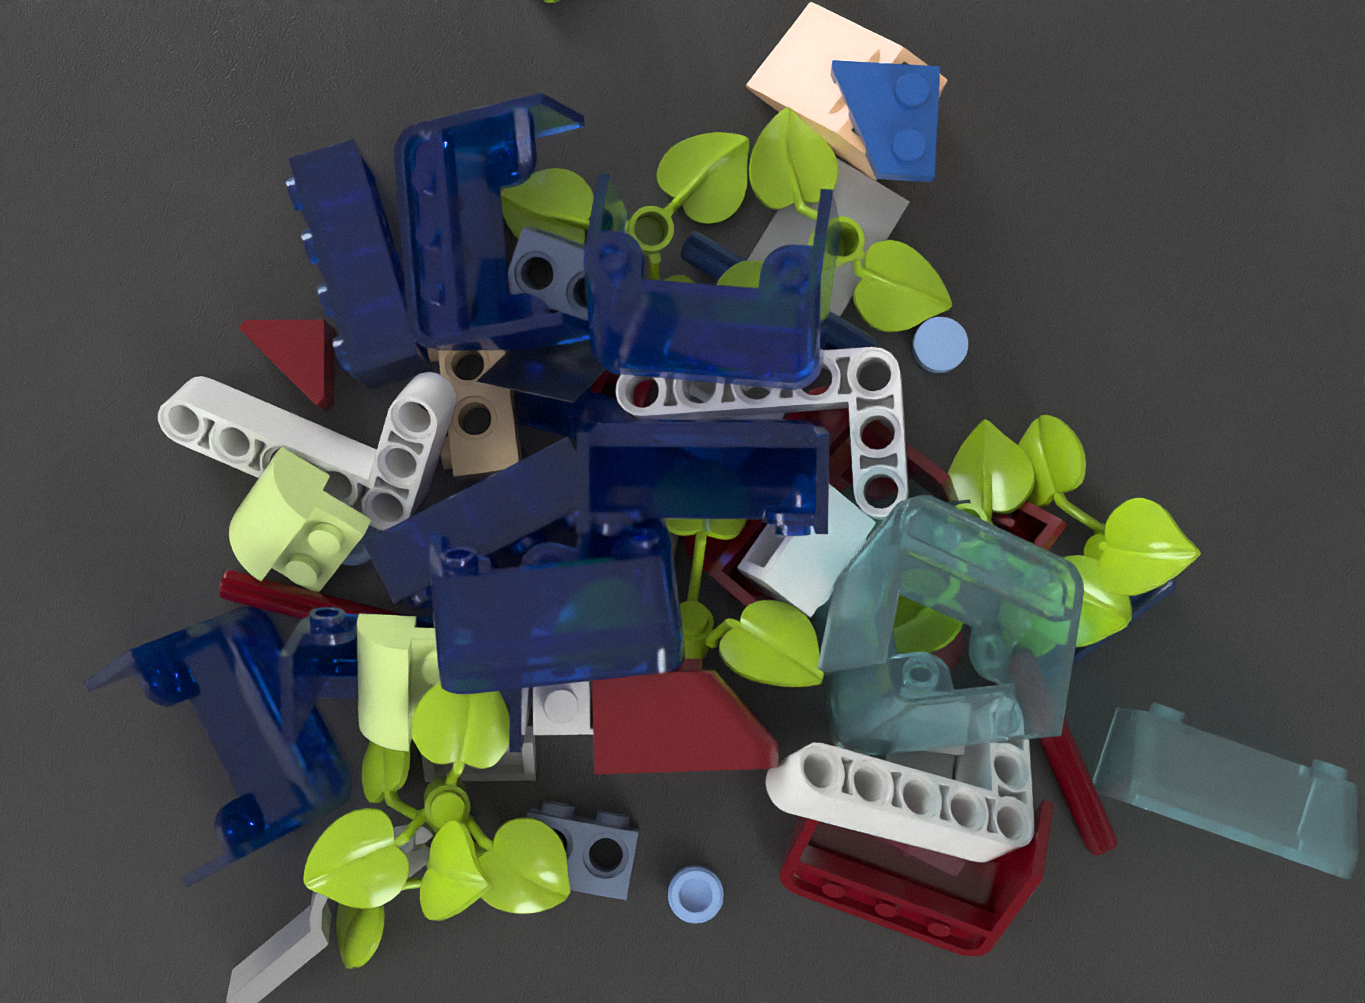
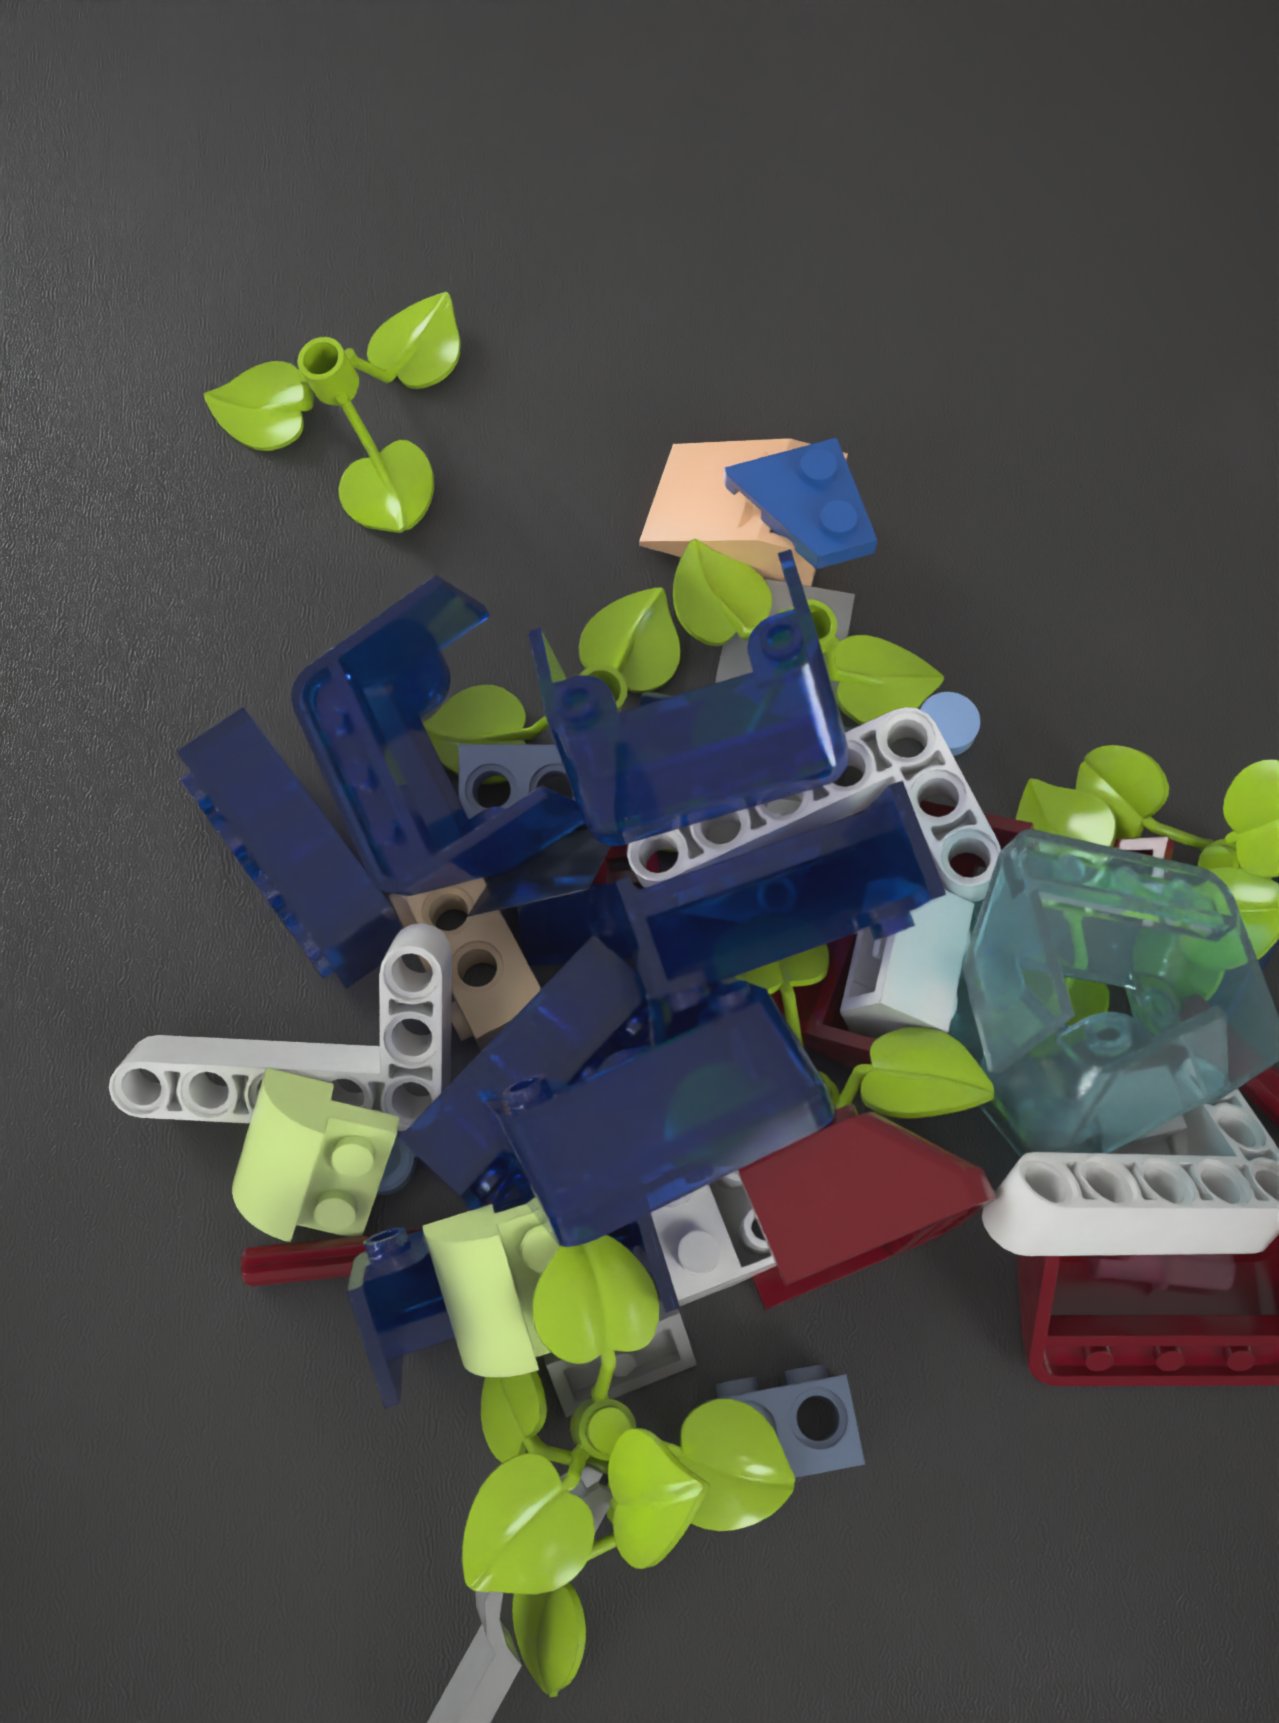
camera: 15 degrees left, 15 degrees down
(234, 686) = (310, 1395): clear blue windscreen -> none
(301, 352) = (250, 969): dark red slope -> none
(695, 894) = (938, 1432): light blue tile -> none

